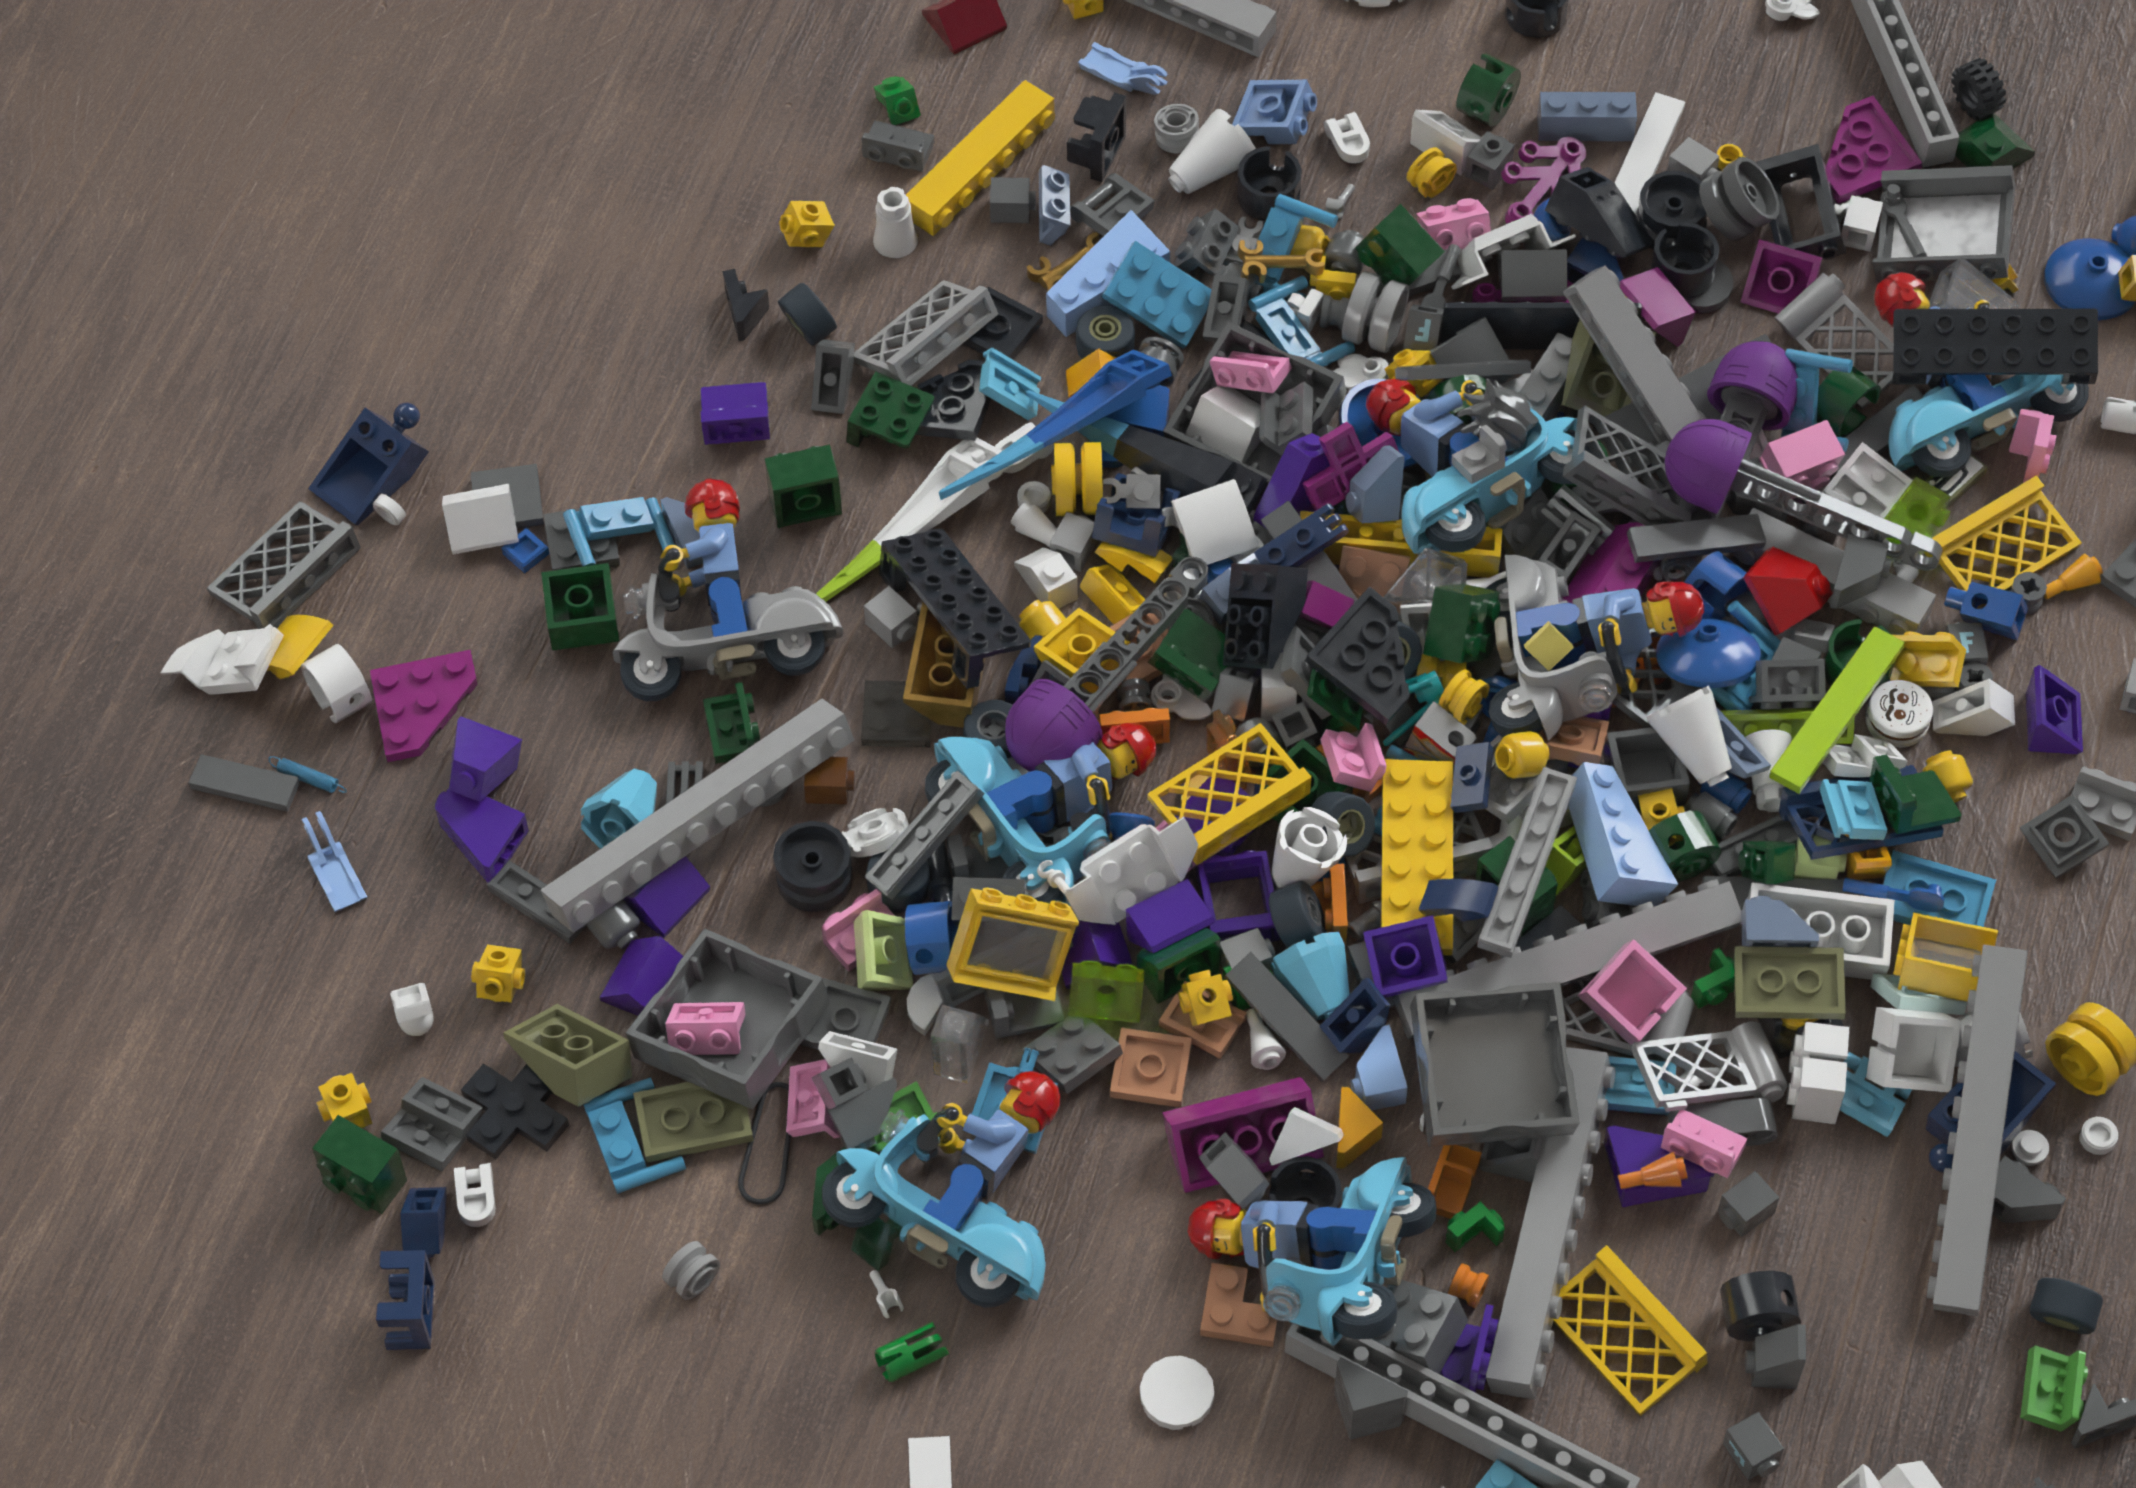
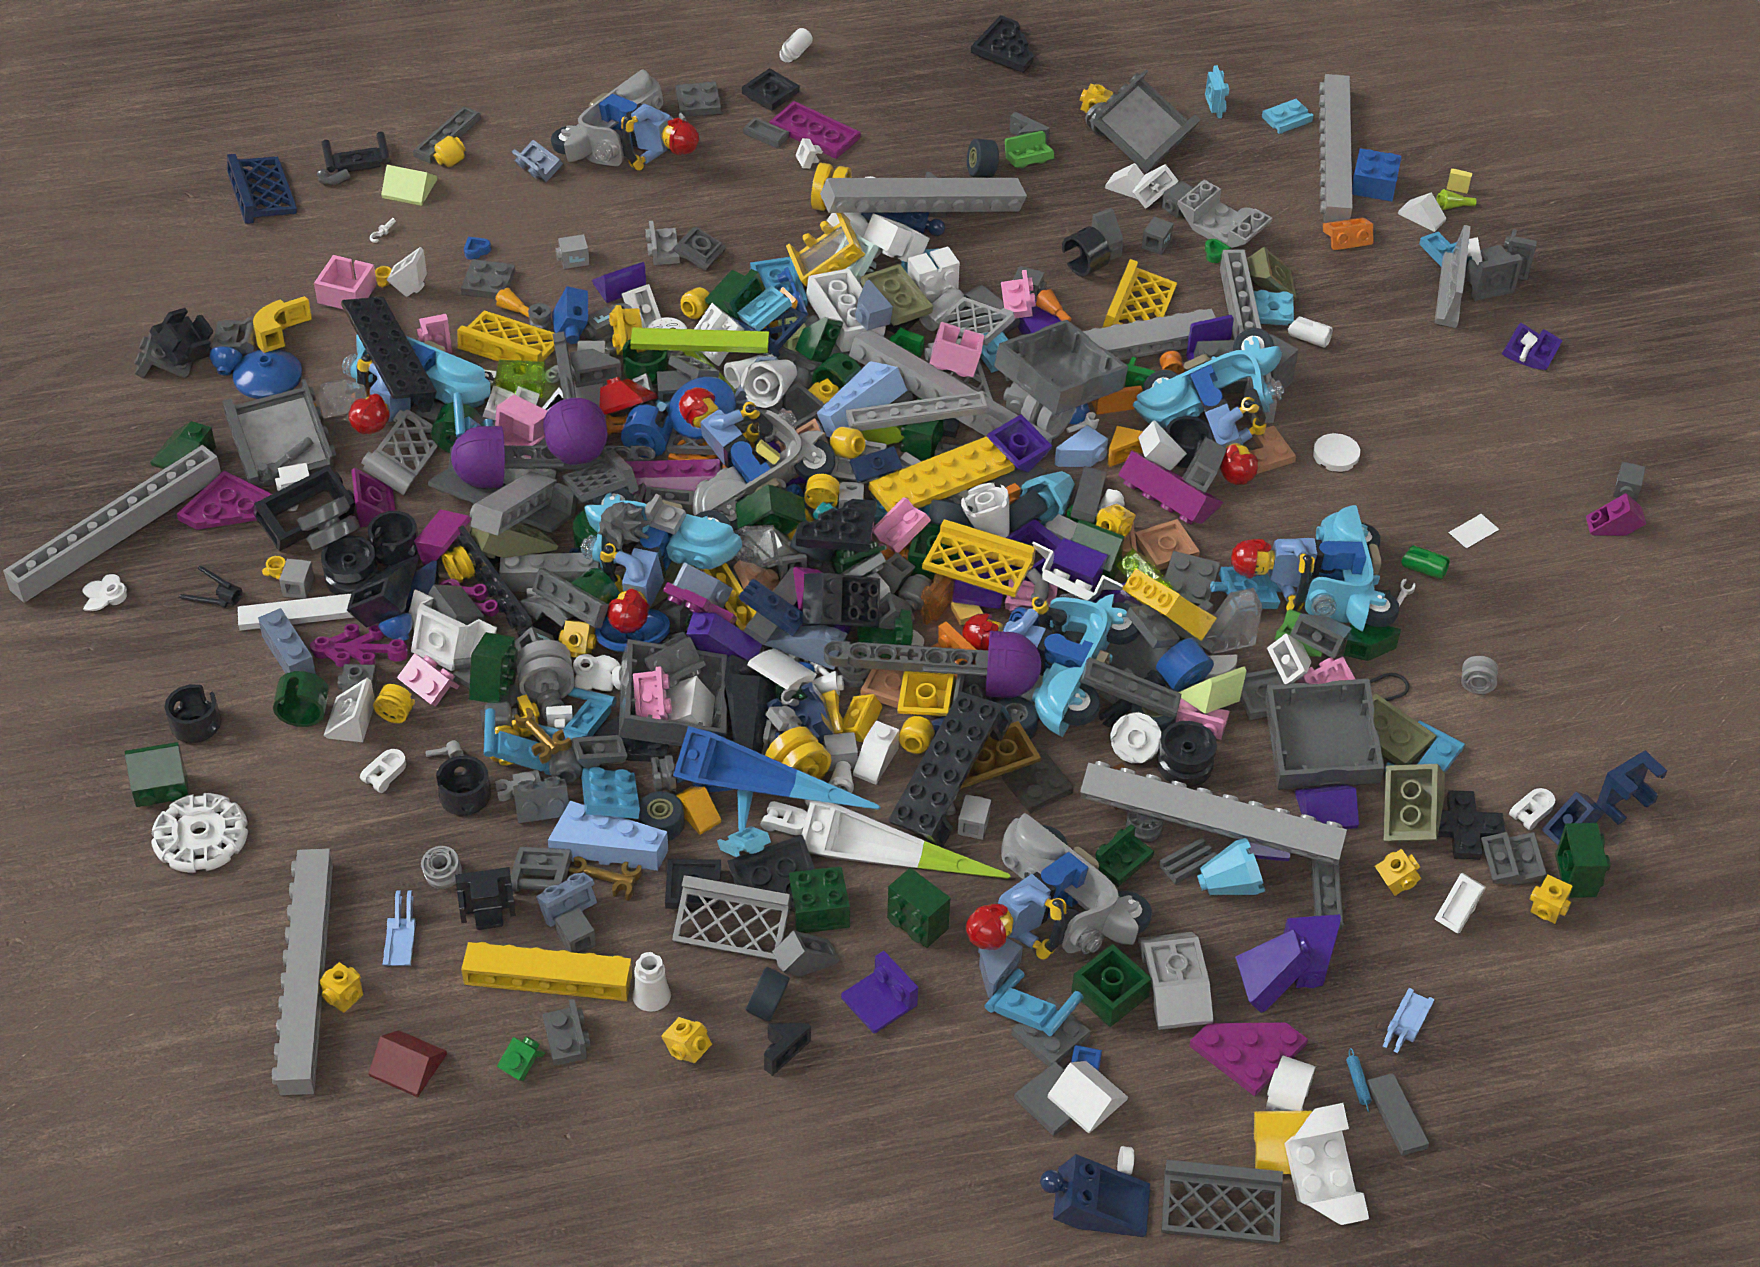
camera: 125 degrees left, 10 degrees down
(553, 670) = (1178, 980): none -> light grey slope
(706, 1027) = (1336, 741): bright pink bracket -> none
(840, 1083) = (1320, 646): dark grey brick -> none
(1054, 877) = (1115, 594): white hand -> none
(1210, 154) = (459, 829): white cone -> none
(1276, 110) = (389, 817): medium blue plate -> none
(1357, 1019) = (1066, 457): dark blue slope -> none
(1459, 897) = (968, 426): dark blue slope -> none
(1696, 538) = (630, 448): dark grey tile -> none
(1715, 98) = (227, 592): none -> black plant
(1978, 88) = (143, 460): black tyre -> none

